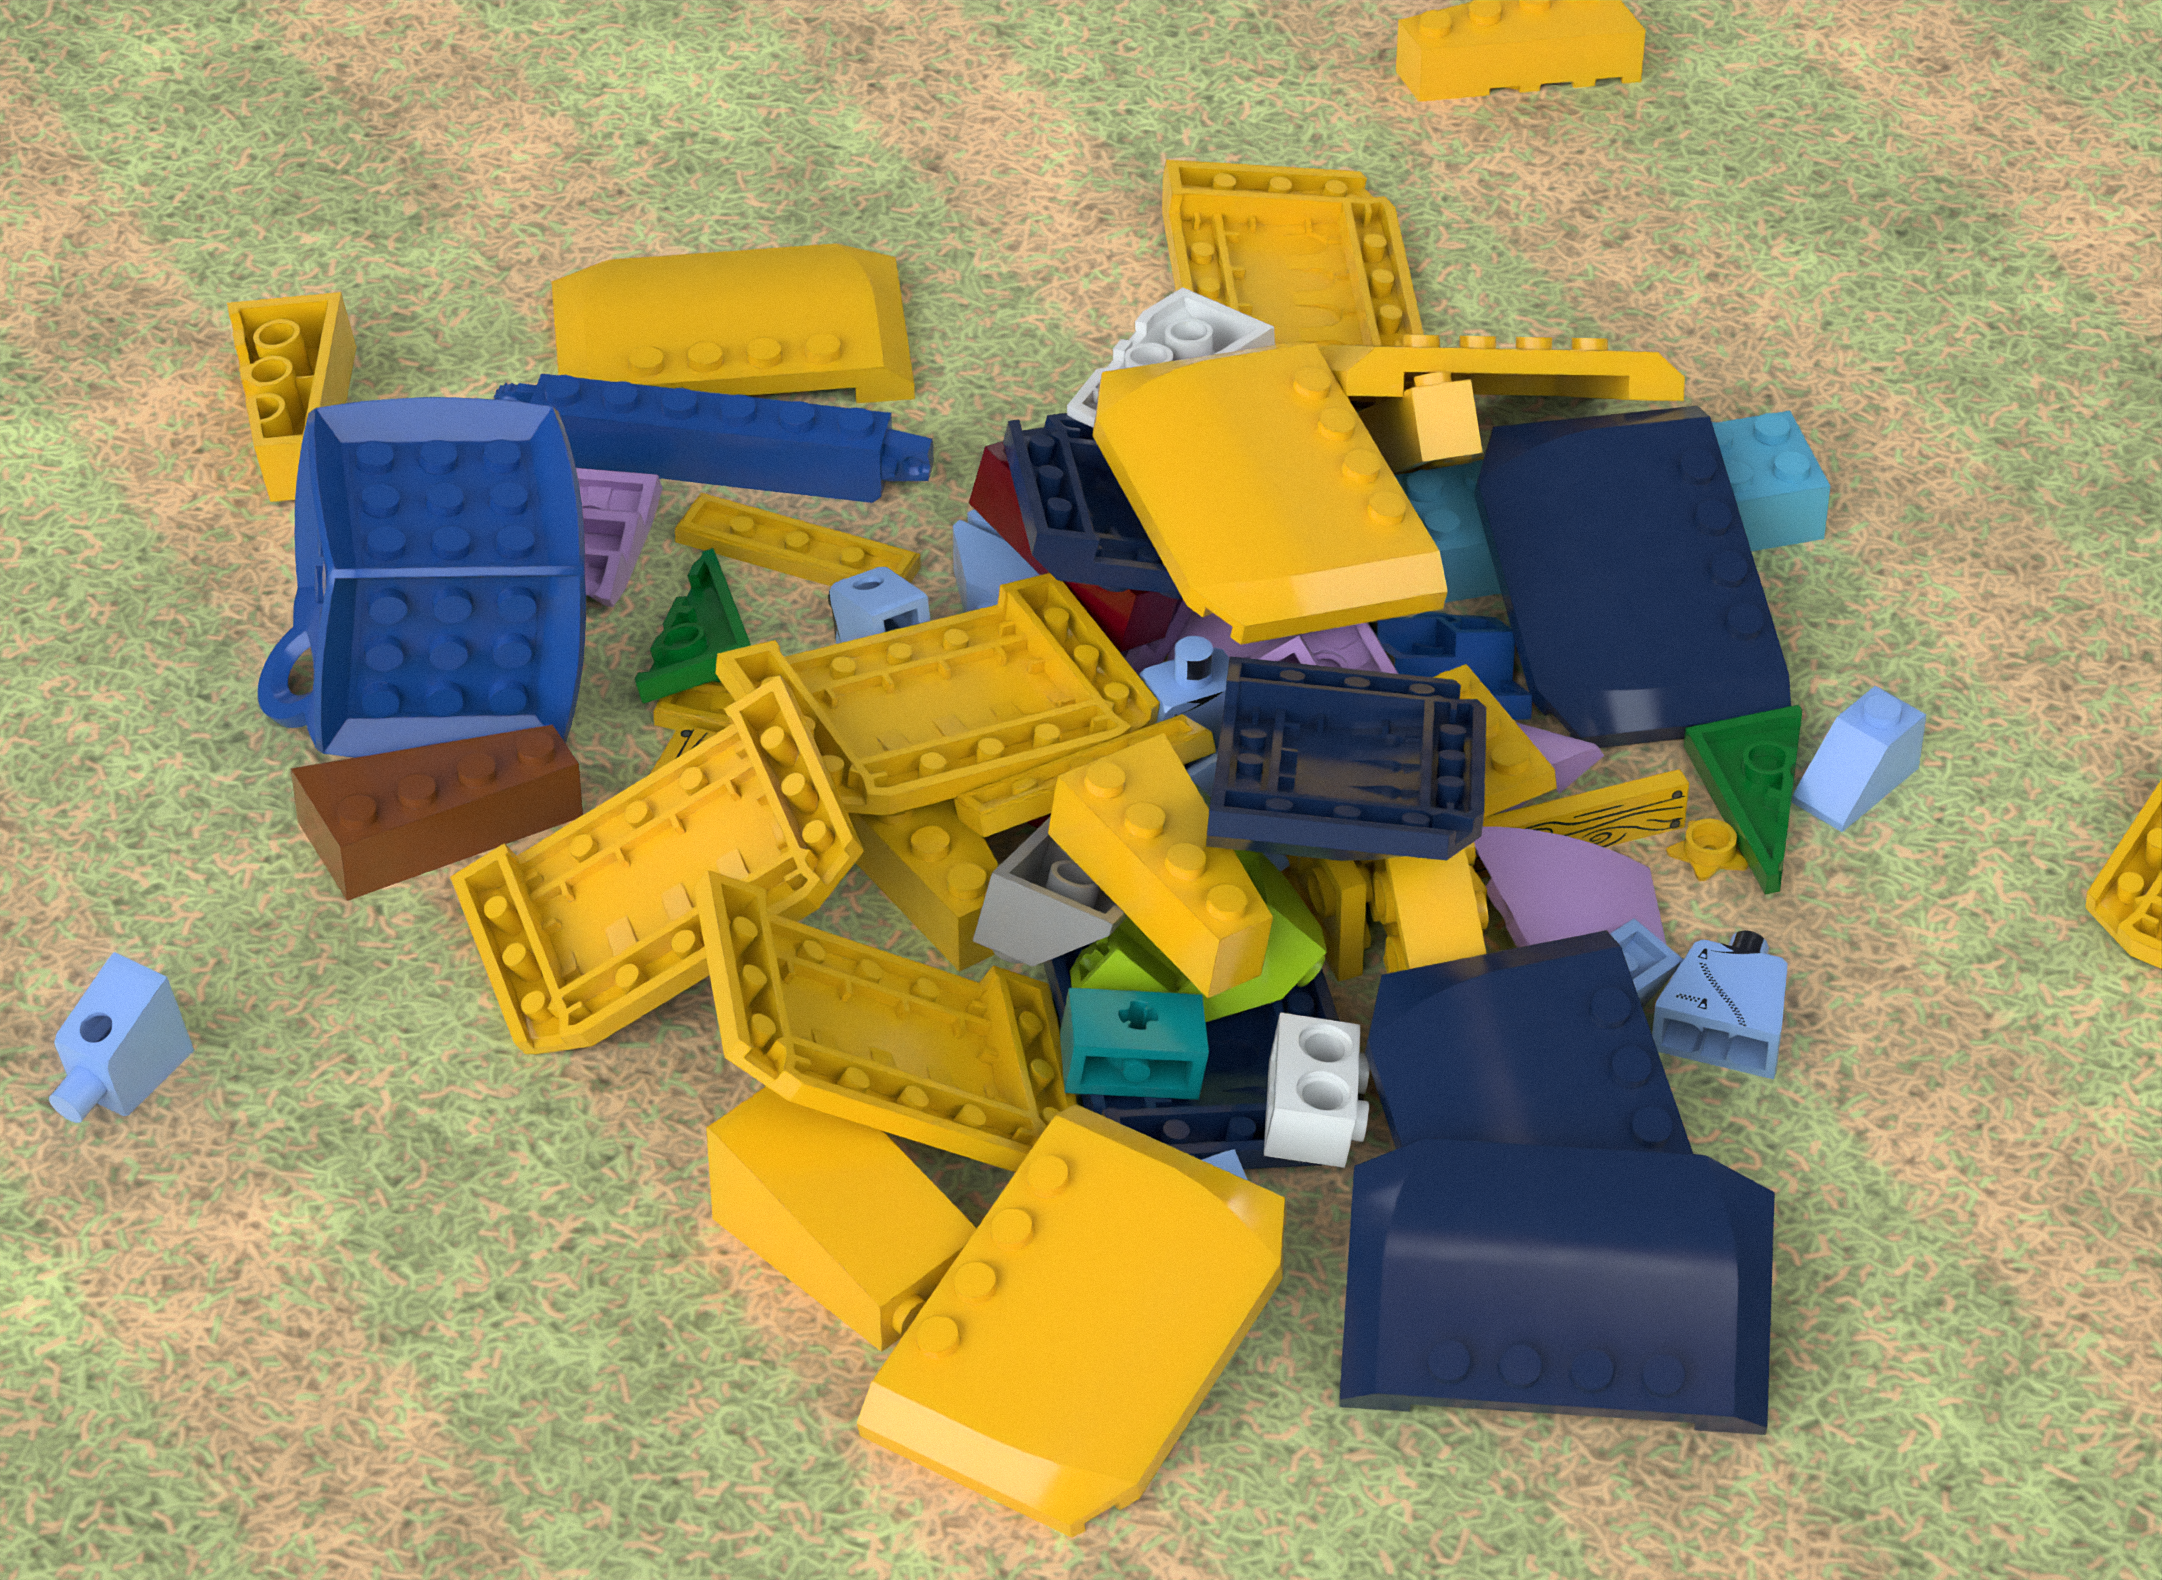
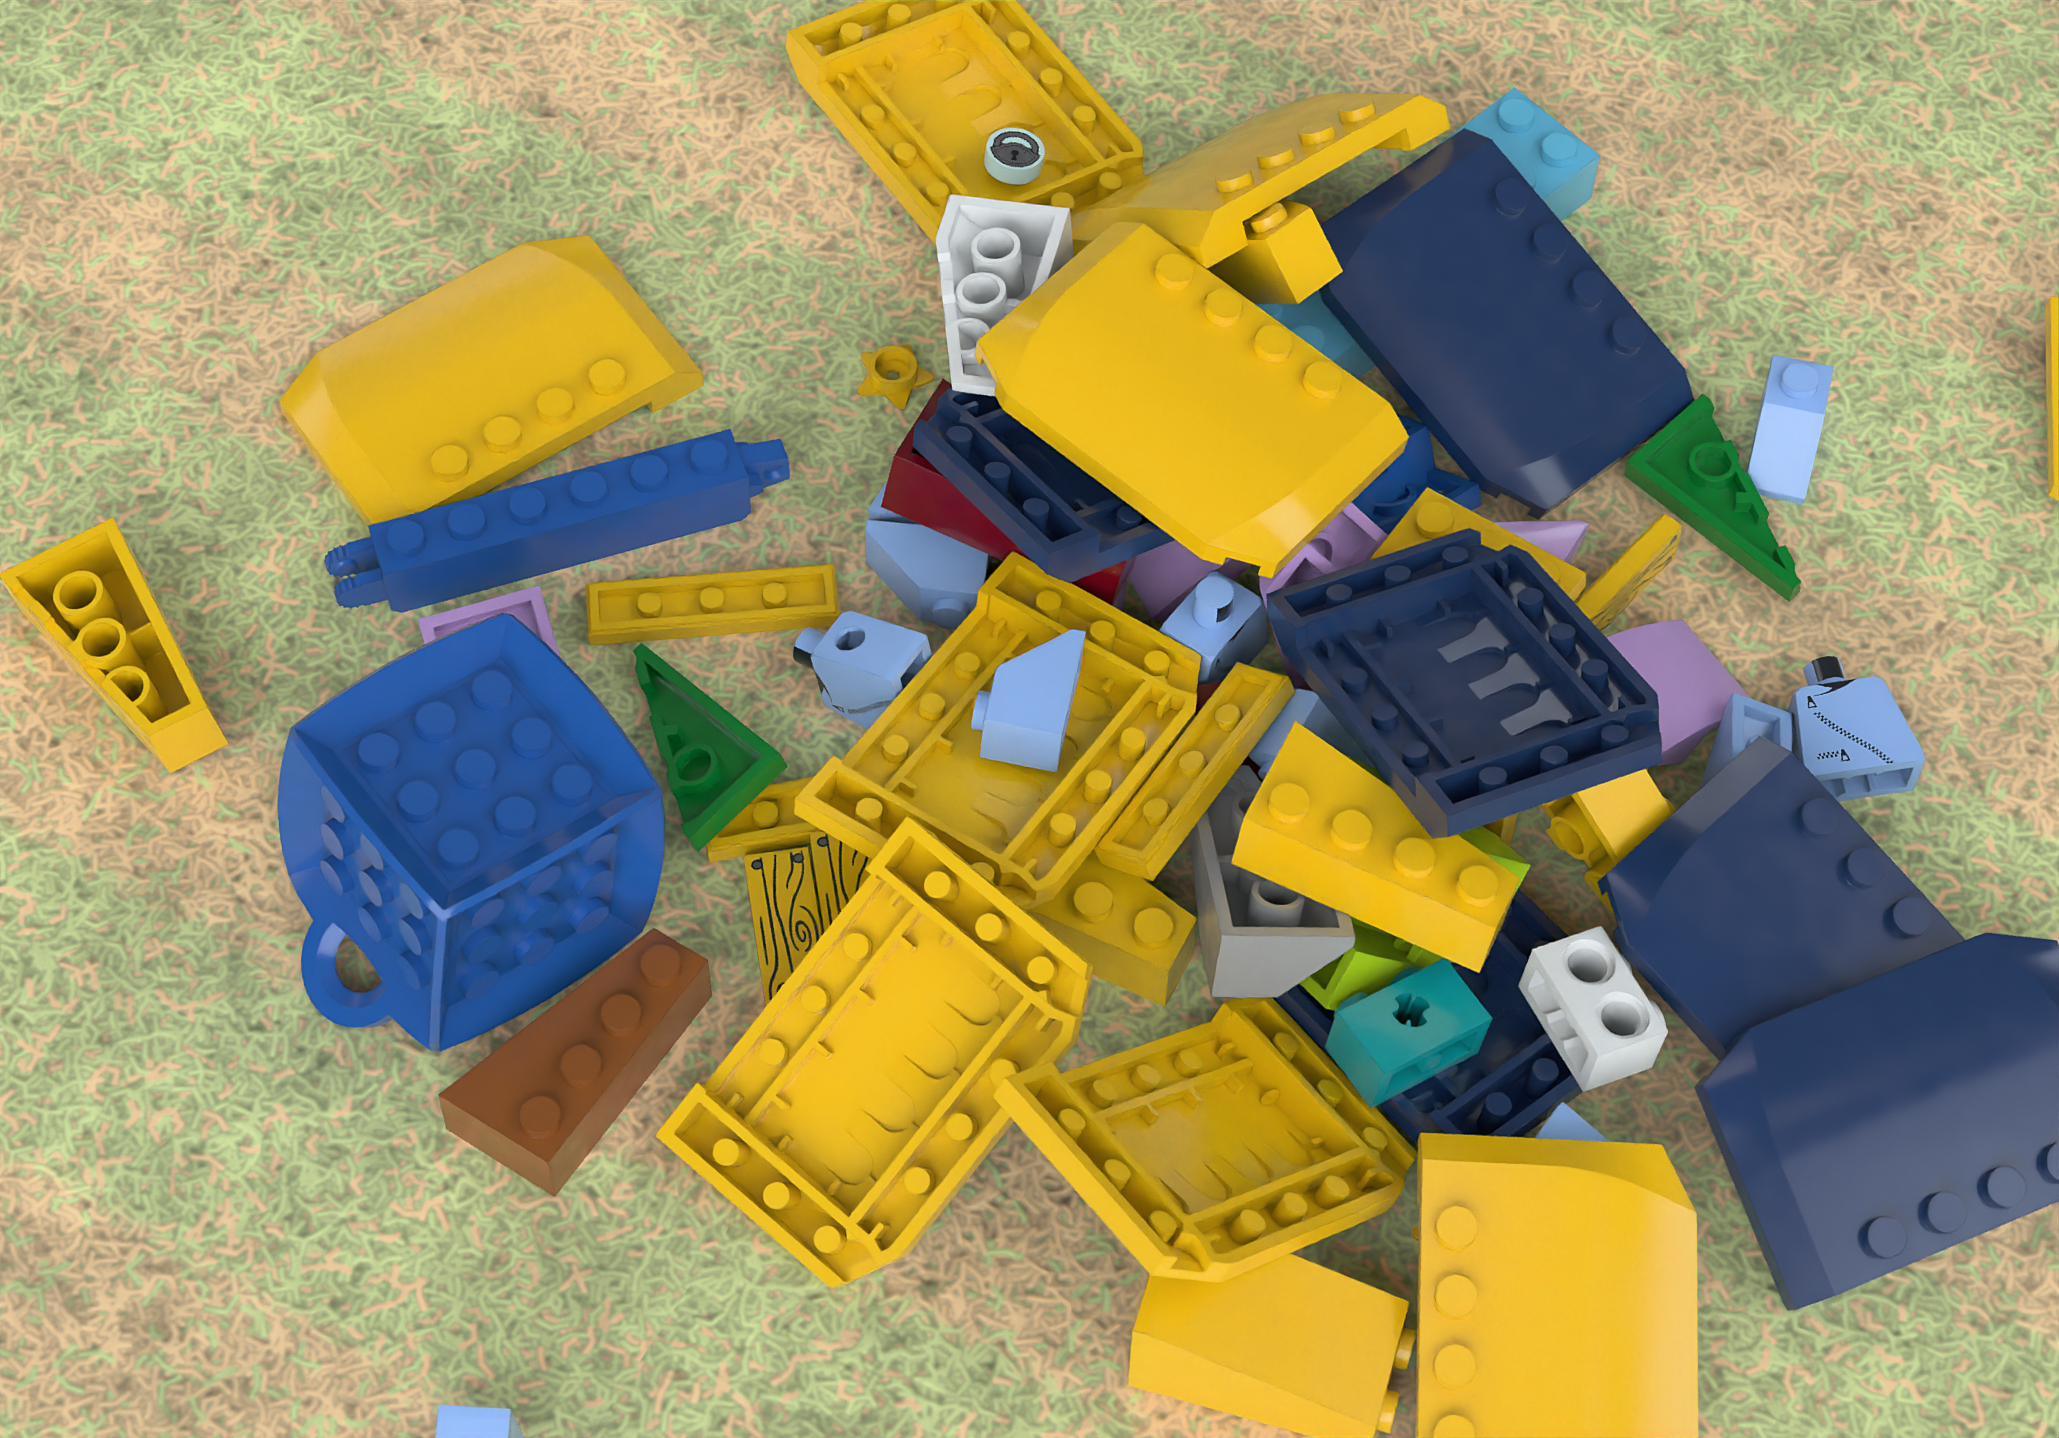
camera: 30 degrees left, 15 degrees up
(978, 670) = (1031, 704): none -> light blue slope
(1302, 319) = (1014, 156): none -> tile
(1709, 834) = (1716, 559): yellow plate -> none

